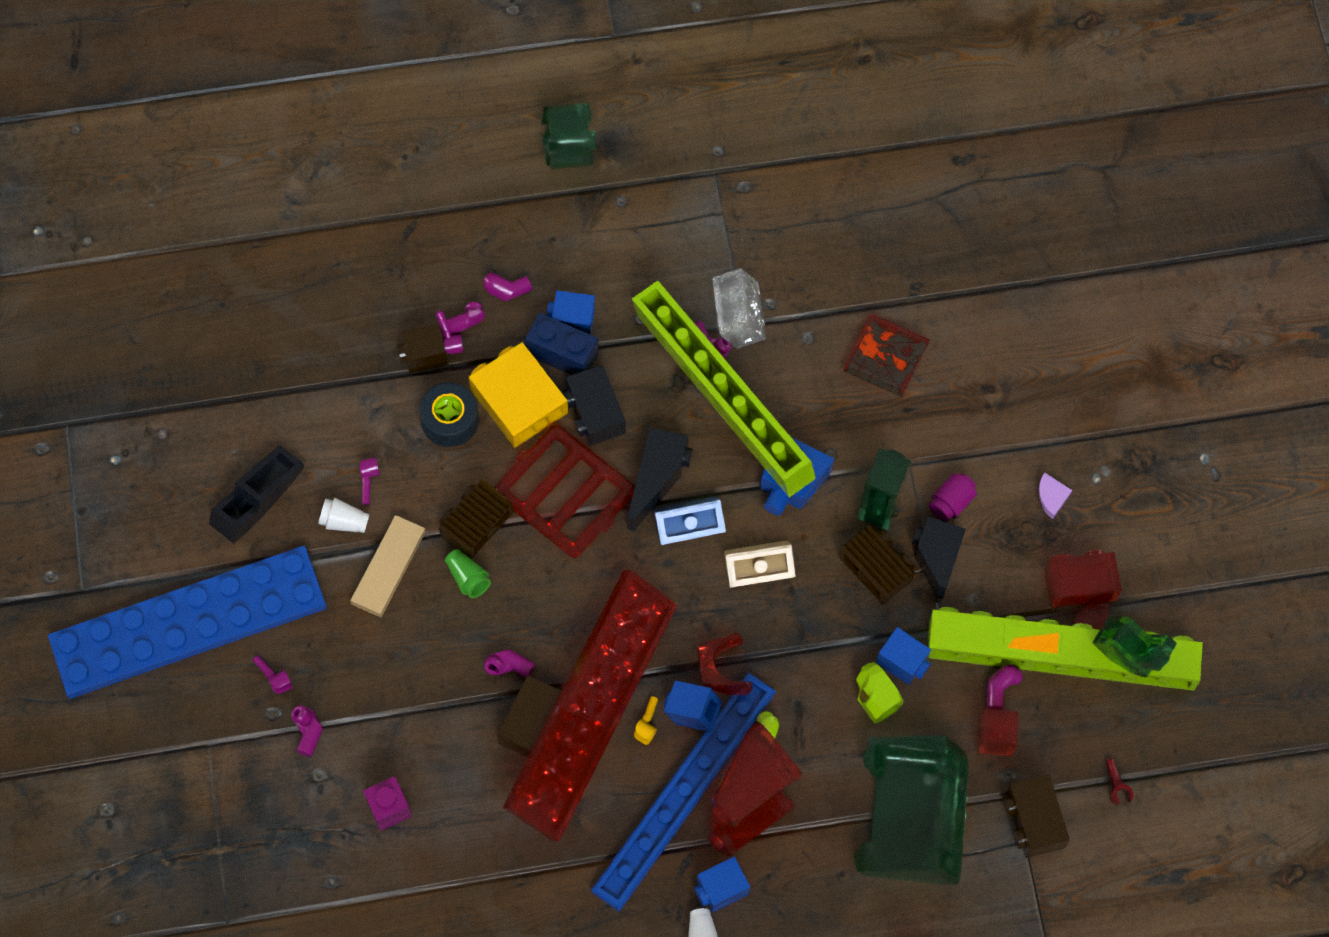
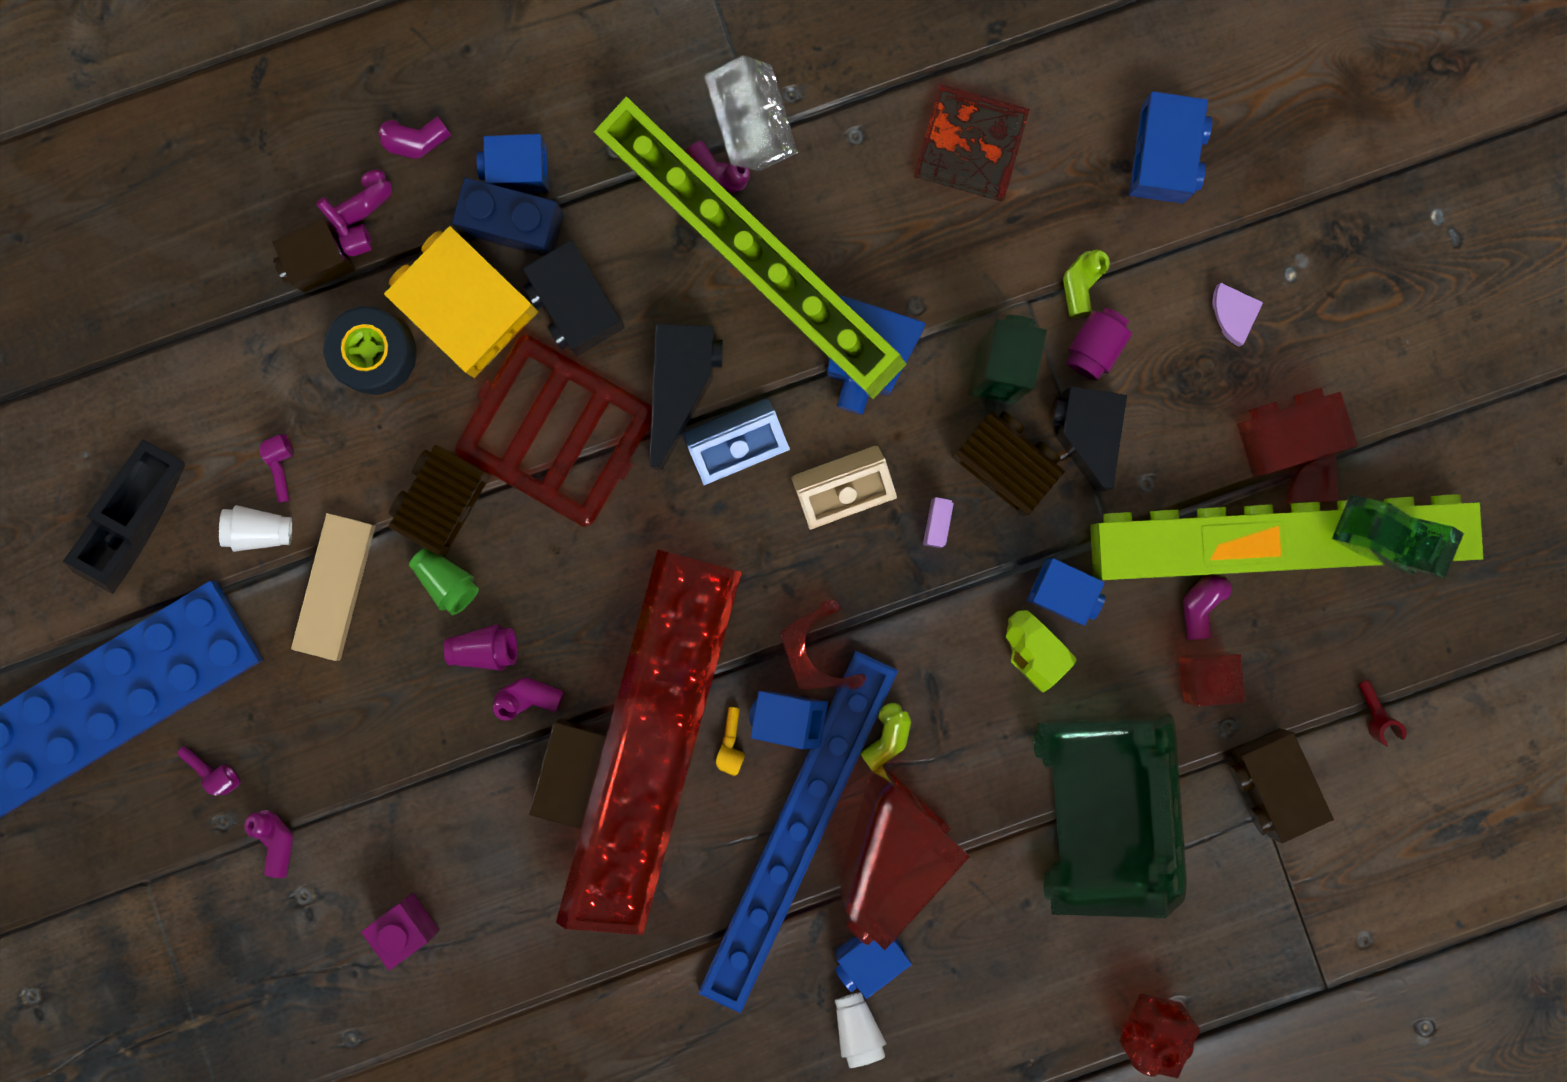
camera: 10 degrees left, 20 degrees up
(485, 623) = (483, 648): none -> magenta cone
(821, 595) = (938, 522): none -> lavender tile
(948, 454) = (1081, 278): none -> lime arm
(1020, 380) = (1170, 148): none -> blue brick

